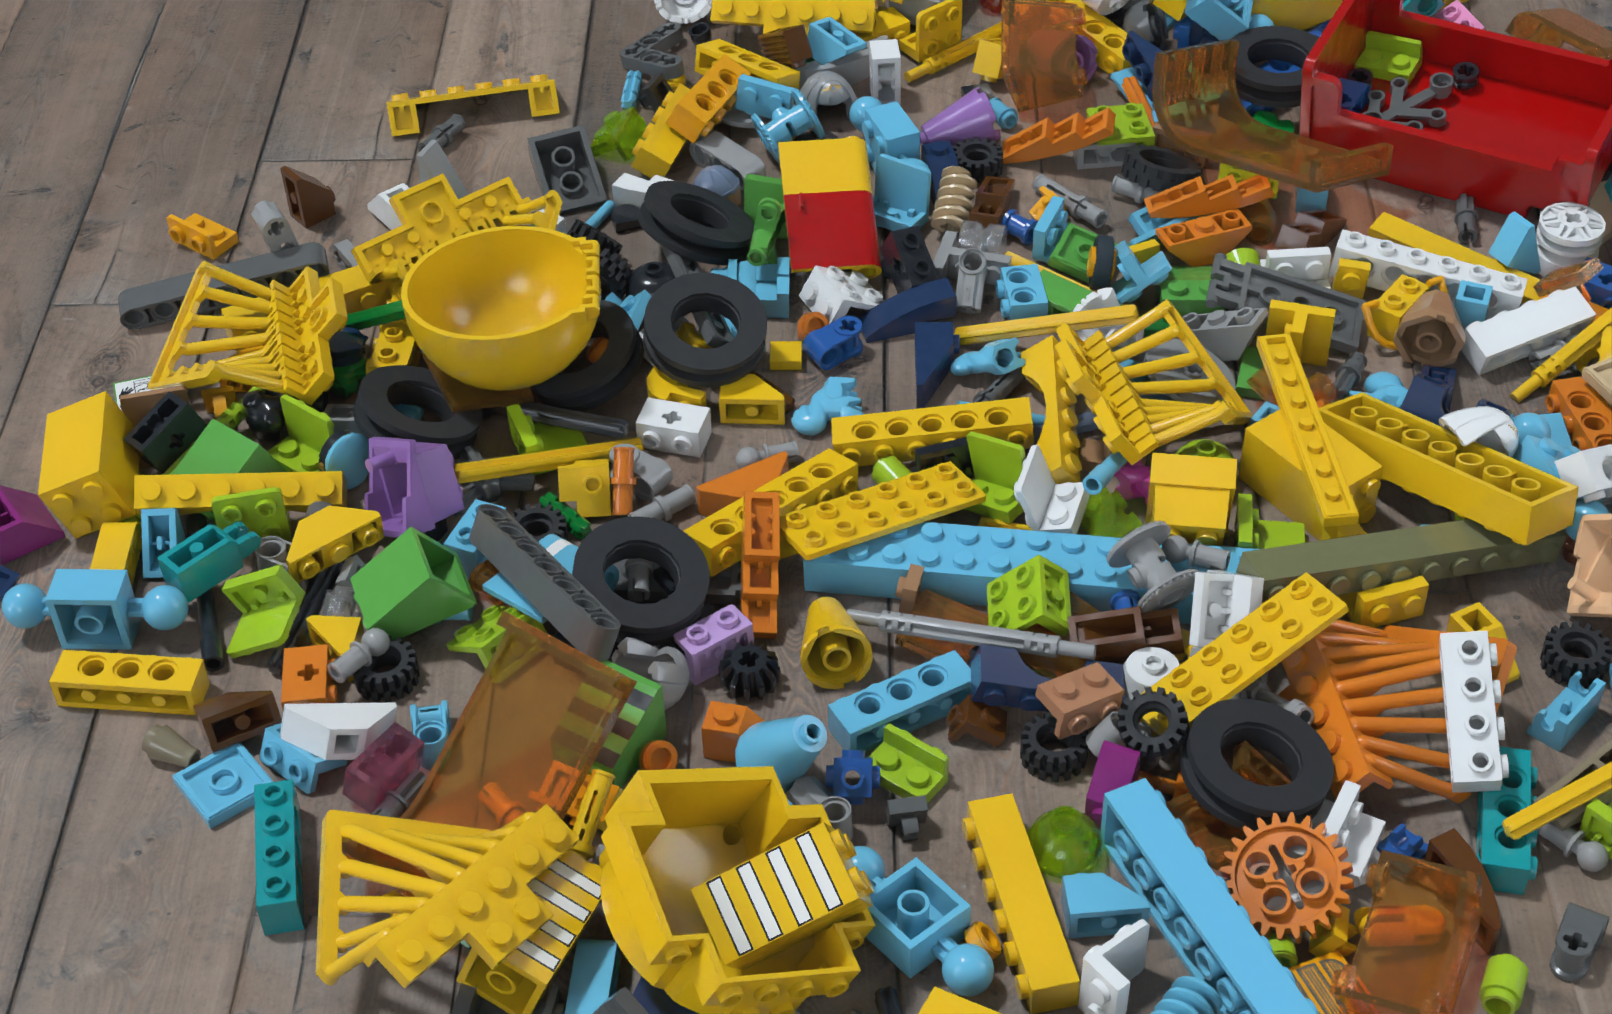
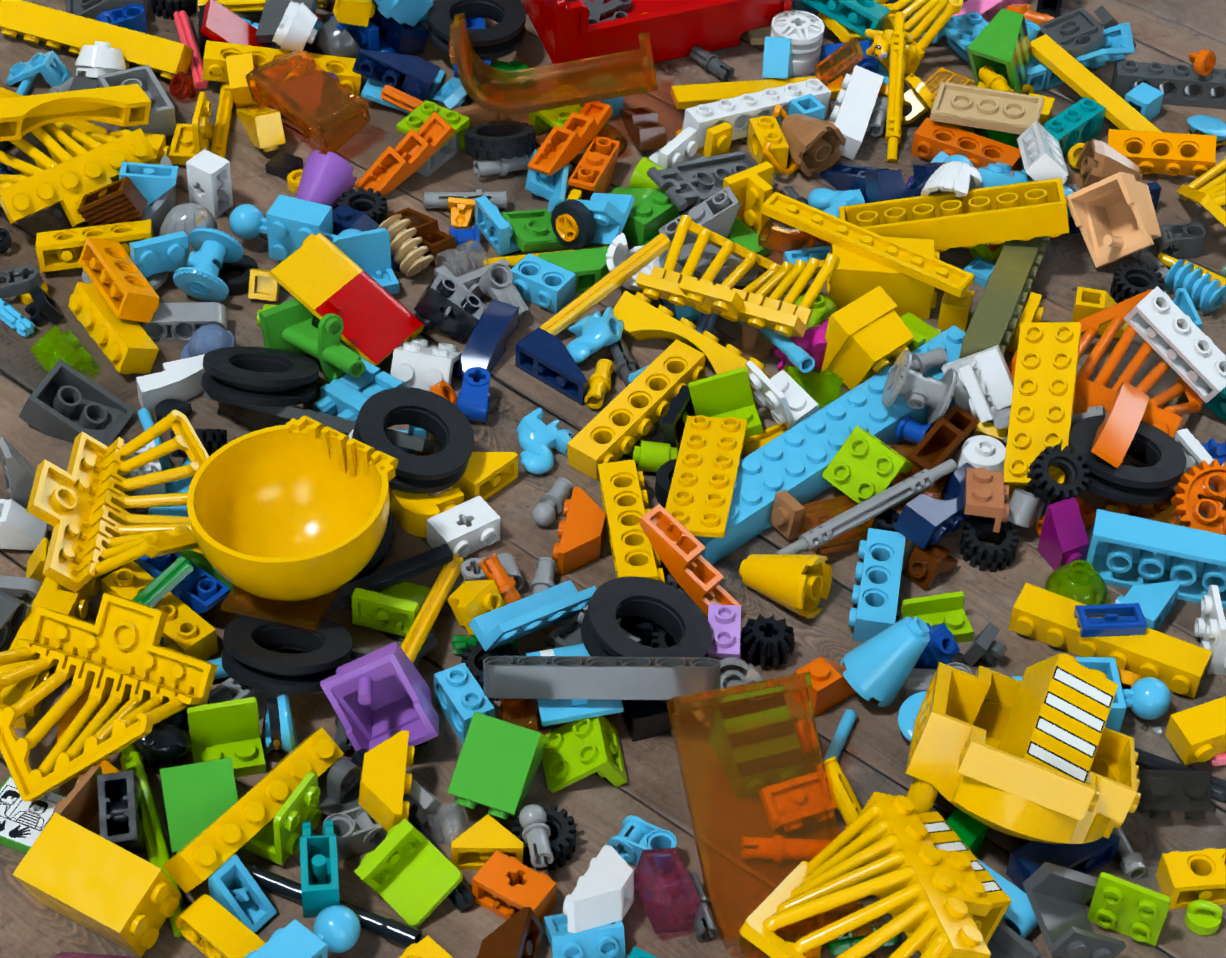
camera: 55 degrees left, 0 degrees up
(591, 507) = (529, 614): none -> medium azure fence
(947, 396) = (599, 383): none -> yellow pin
(1021, 882) = (1111, 624): none -> blue tile
(1275, 724) = (1120, 424): none -> orange slope

